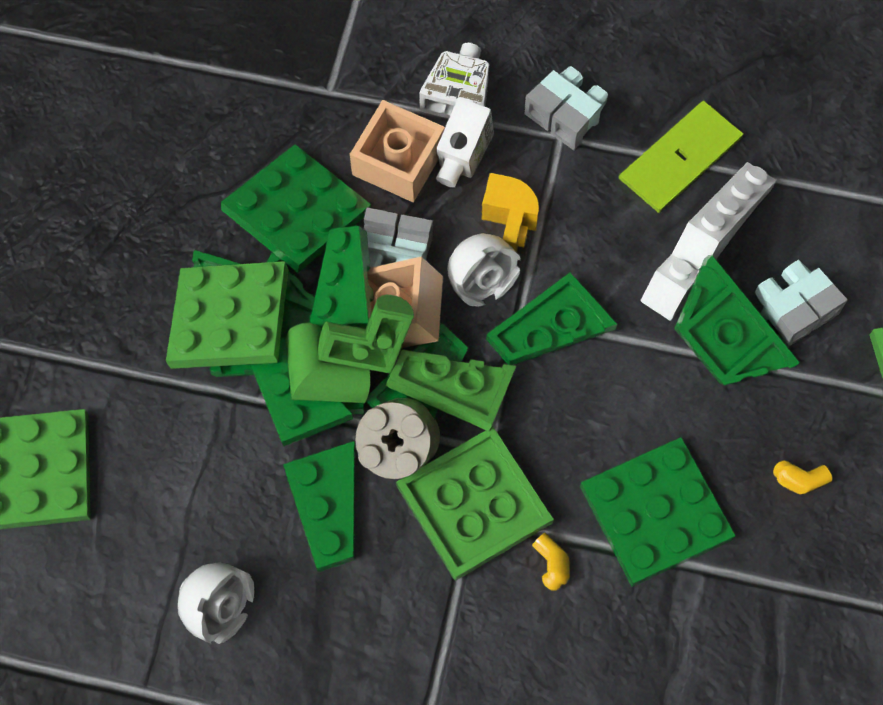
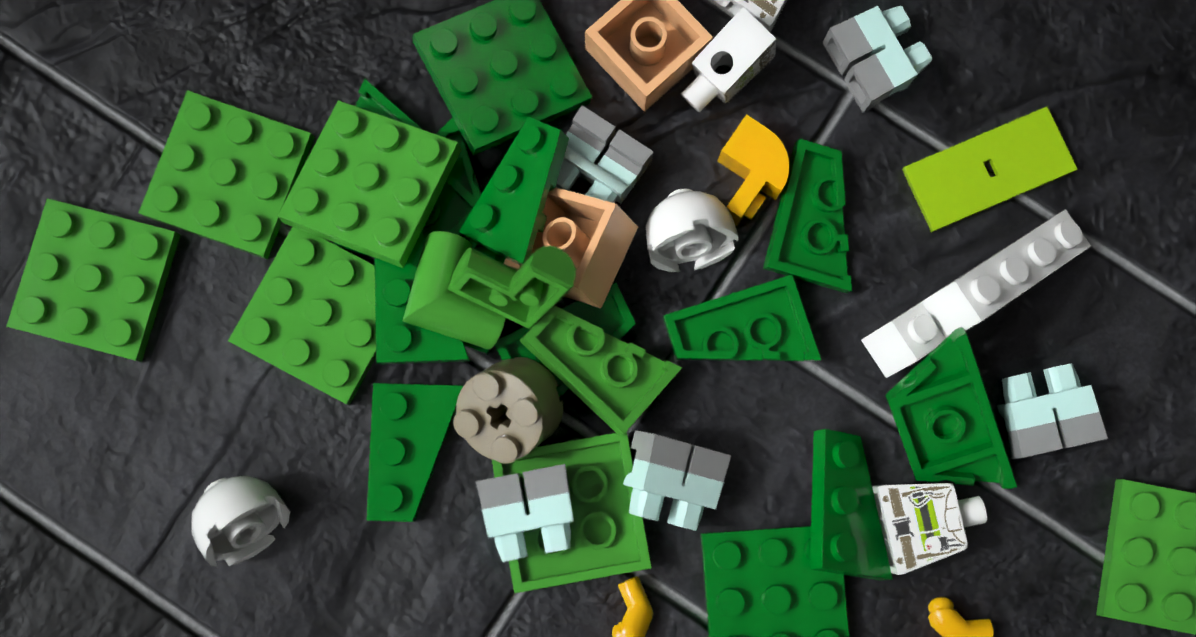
camera: 20 degrees right, 15 degrees up
(110, 356) = (226, 174): none -> bright green plate
(218, 433) = (314, 315): none -> bright green plate
(439, 501) = (507, 515): none -> light aqua hips
(542, 440) = (677, 471): none -> light aqua hips
(567, 234) = (809, 221): none -> green wing
(680, 424) = (844, 510): none -> green wing
(740, 411) = (924, 522): none -> torso

